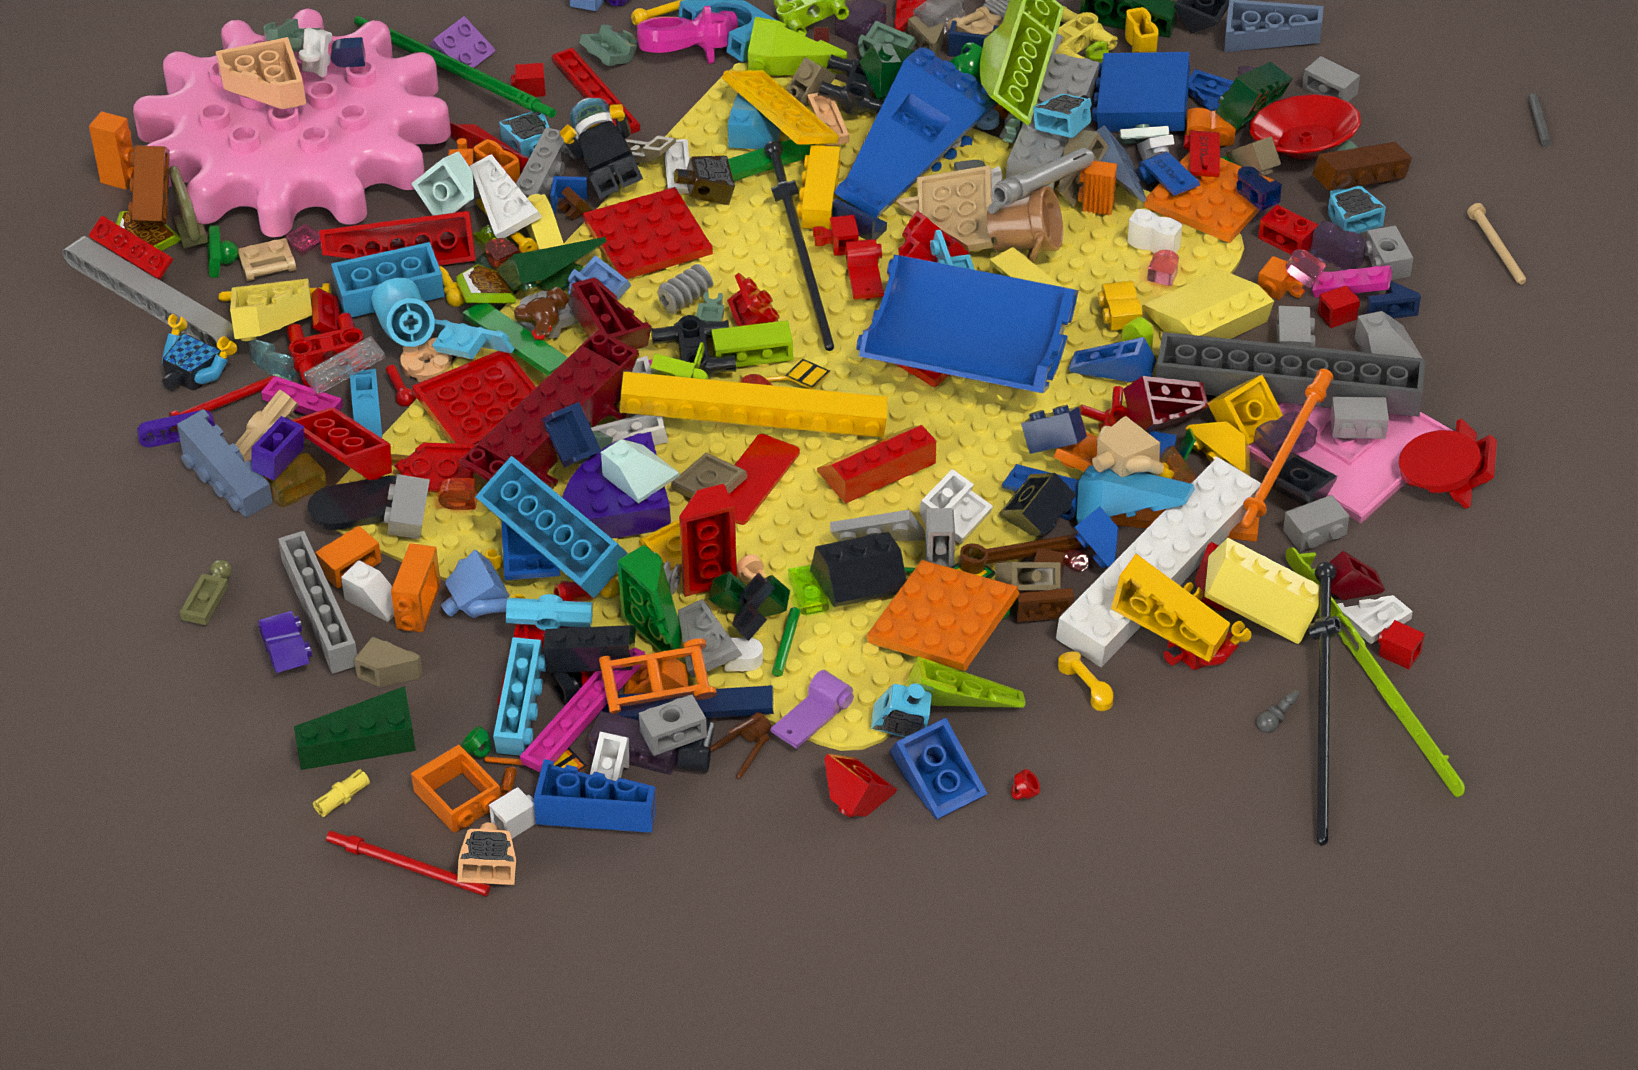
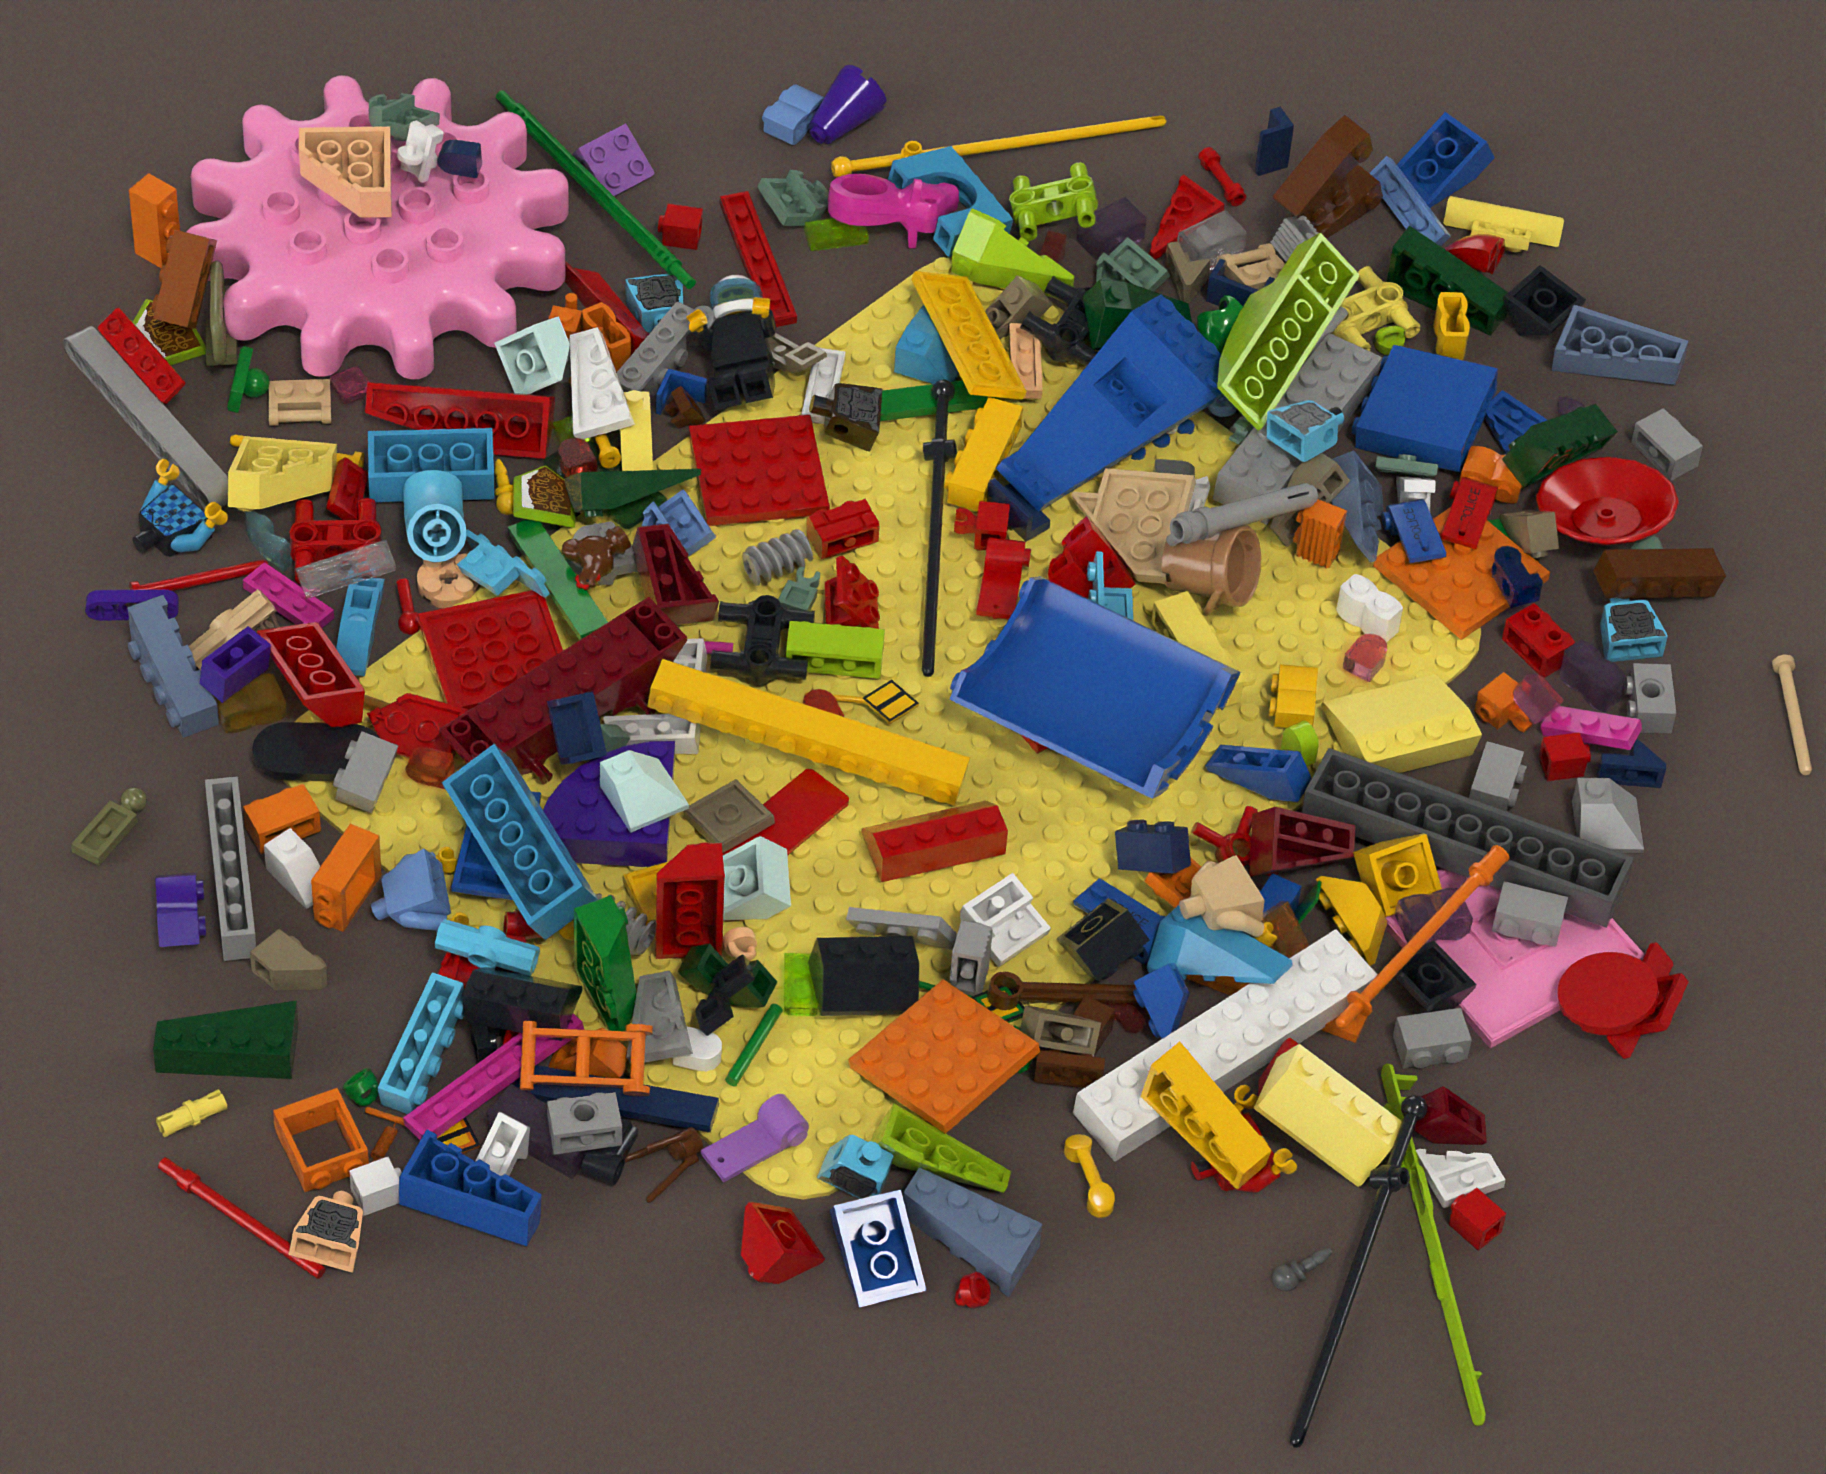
camera: 10 degrees right, 5 degrees up
(649, 64) = (834, 234): none -> clear neon green plate
(674, 367) = (732, 669): lime piece -> none
(729, 258) = (842, 528): none -> red brick
(754, 519) = (756, 880): none -> light aqua slope
(1010, 737) = (973, 1227): none -> sand blue wedge

